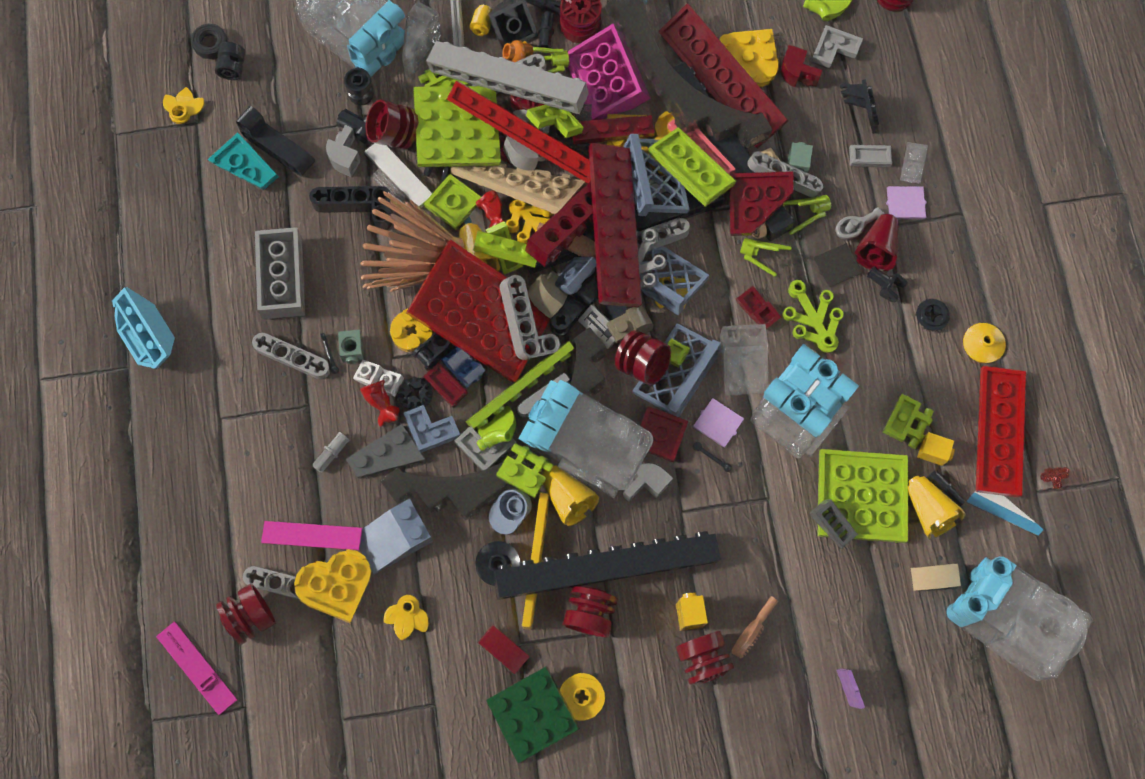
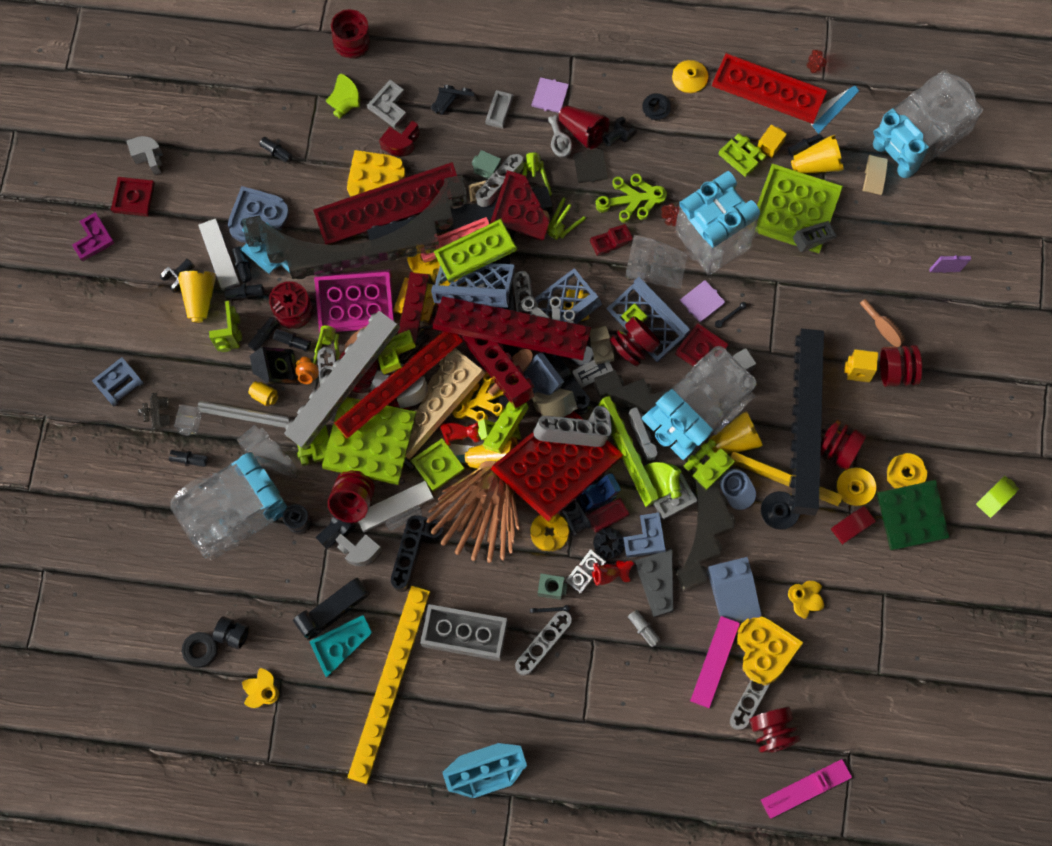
camera: 65 degrees left, 0 degrees up
(212, 220) = (388, 685): none -> yellow plate
(545, 630) = (861, 479): none -> yellow dish
(913, 162) = (518, 77): clear slope -> none

